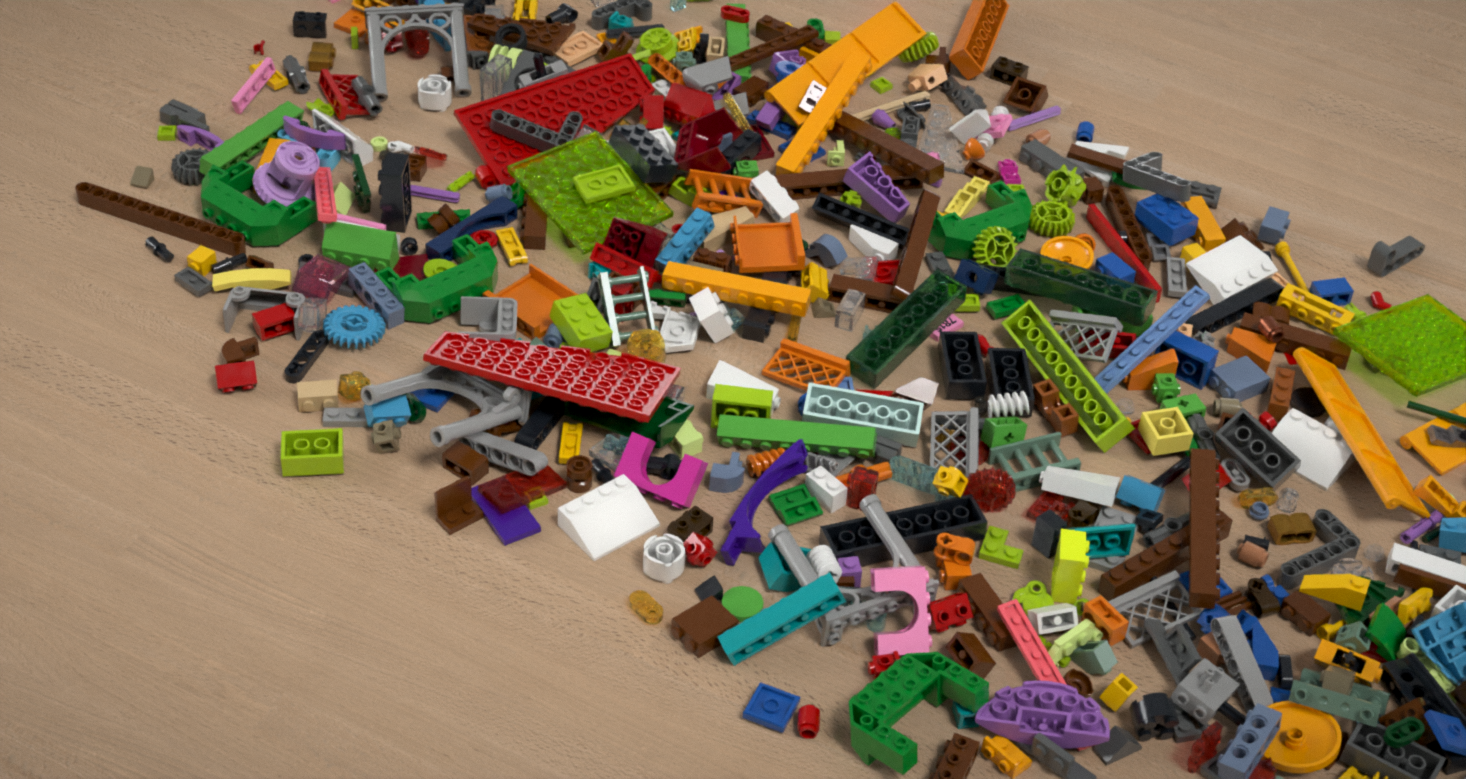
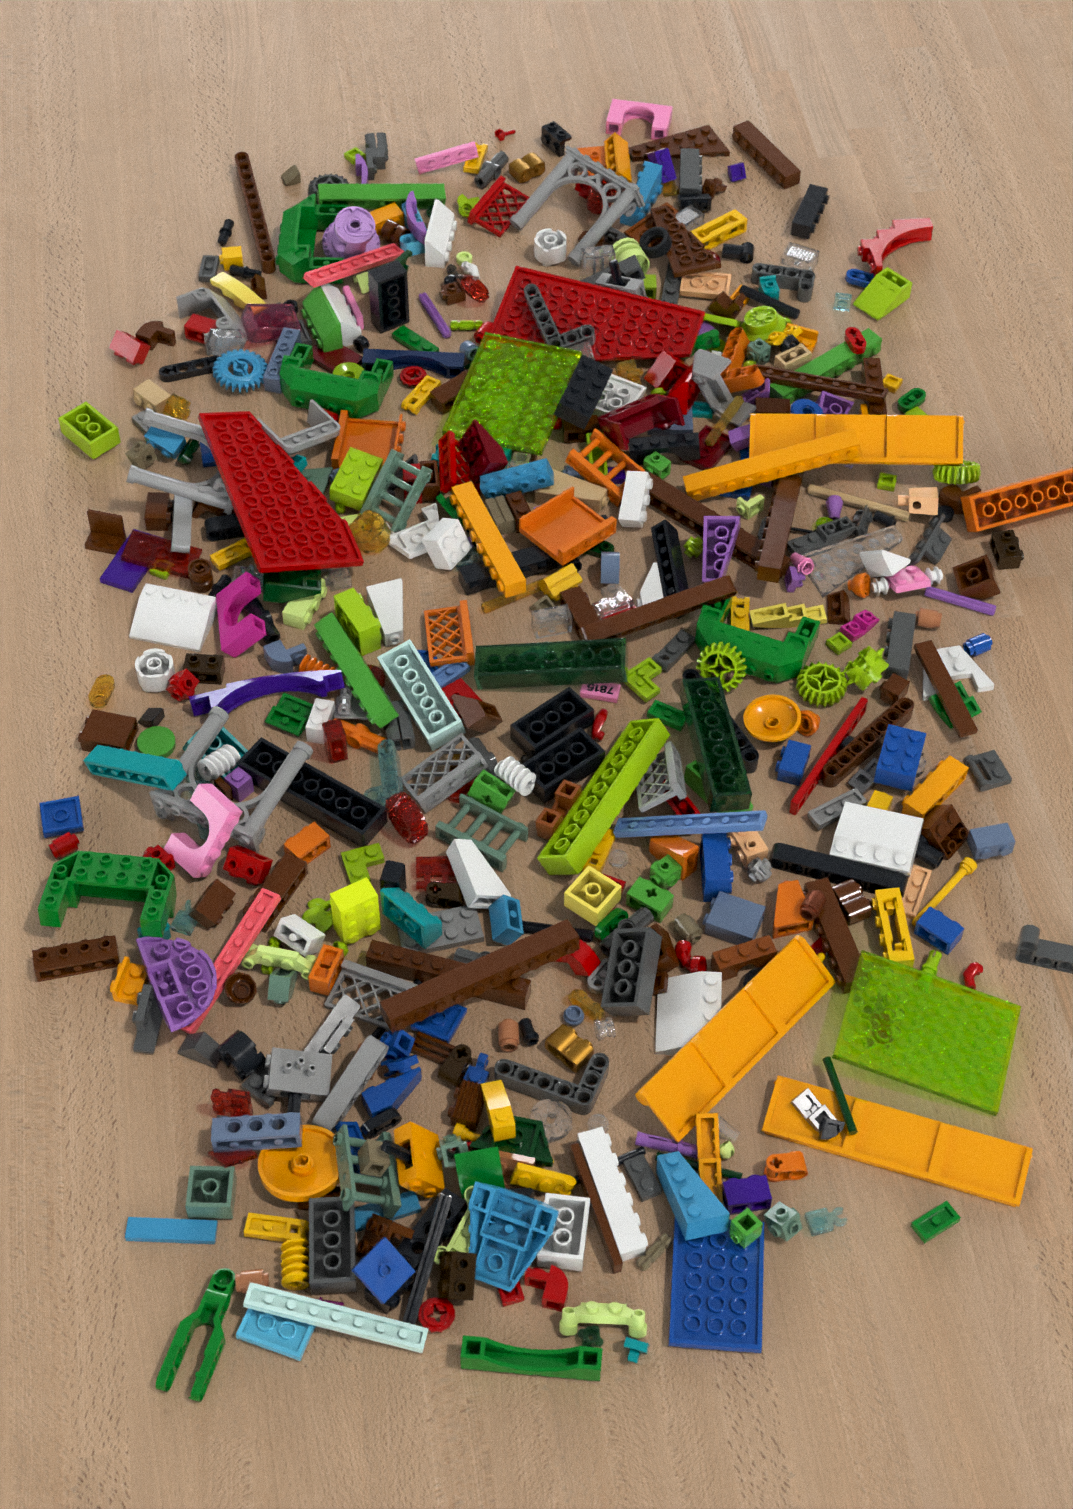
camera: 55 degrees right, 10 degrees up
(366, 96) = (501, 216): dark grey piece -> none
(444, 219) = (403, 340): reddish brown wheel -> none
(603, 183) = (524, 393): lime tile -> none
(812, 96) = (782, 442): slope -> none
(950, 481) = (377, 784): yellow brick -> none
(957, 549) = (309, 829): orange piece -> none
(985, 277) = (671, 672): dark blue brick -> none
(1118, 692) = (251, 1018): yellow brick -> none
(1148, 174) = (943, 702): dark grey beam -> none
(1148, 520) = (479, 941): black tile -> none
(1400, 733) = (351, 1233): dark green plate -> none

